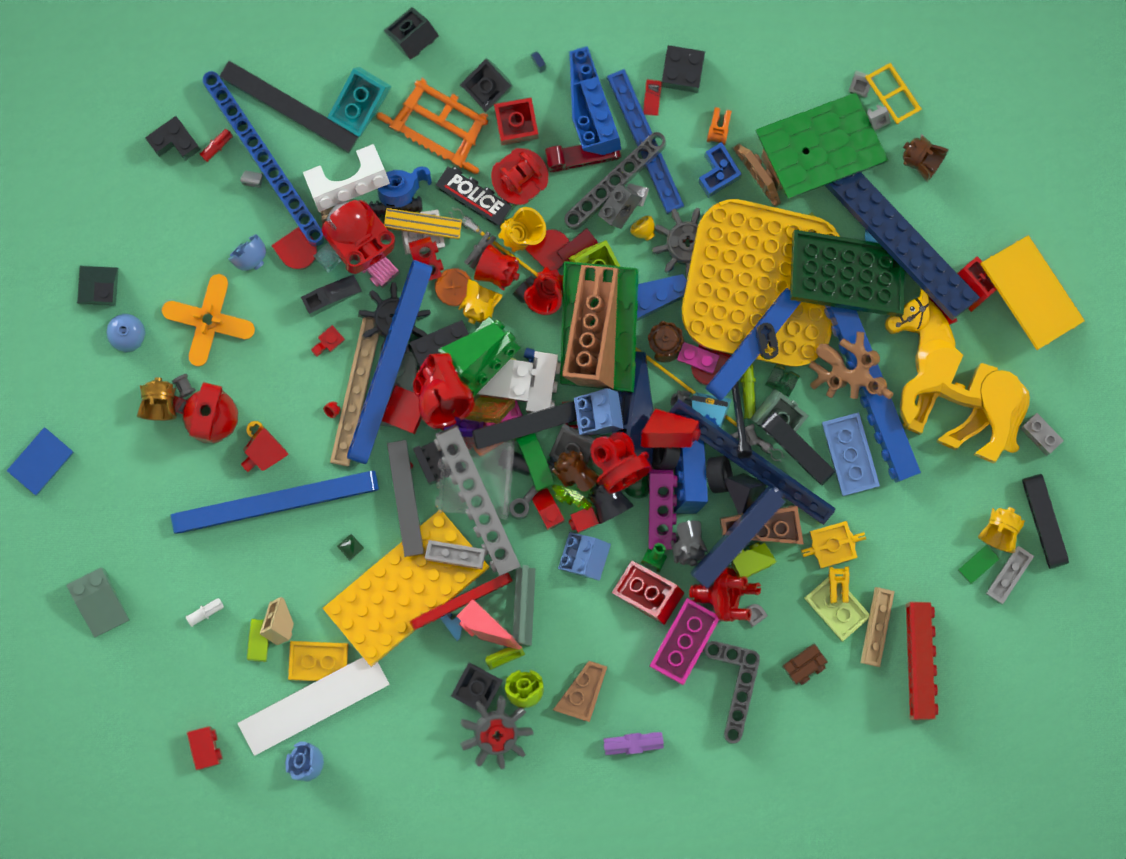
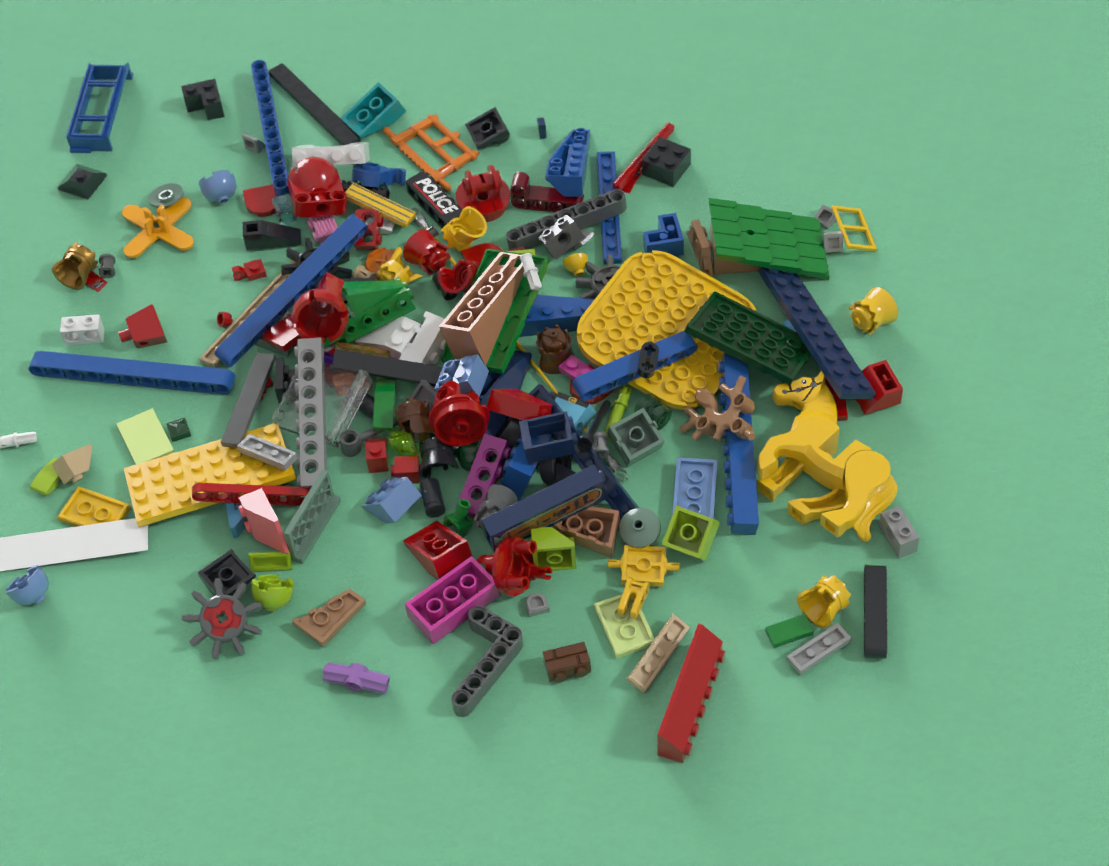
camera: 25 degrees right, 30 degrees down
(76, 240) = (97, 142): none -> blue piece
(132, 329) = (82, 216): medium blue cylinder -> none
(192, 274) = (165, 195): none -> sand green dish
(202, 472) = (82, 330): none -> white brick
(216, 145) = (237, 114): red axle -> none
(218, 423) = (113, 283): red piece -> none
(324, 567) = (145, 437): none -> yellowish green tile
(411, 33) = (443, 82): black slope -> none
(450, 310) = (361, 272): none -> tan bush
(516, 121) = (502, 154): red slope -> none
(620, 541) = (432, 497): none -> black piece
(627, 290) = (530, 271): none -> white axle
(657, 68) = (636, 164): none -> red axle
(704, 444) = (546, 425): none -> dark blue window
(716, 133) = (682, 209): orange piece -> none
(797, 448) = (641, 464): black beam -> none
(815, 503) = (641, 536): none -> sand green dish
(866, 504) = (690, 533): none -> lime slope
(924, 156) = (864, 275): reddish brown hat -> none
(944, 195) = (874, 310): none -> yellow hat
(1032, 292) = (932, 409): yellow piece -> none

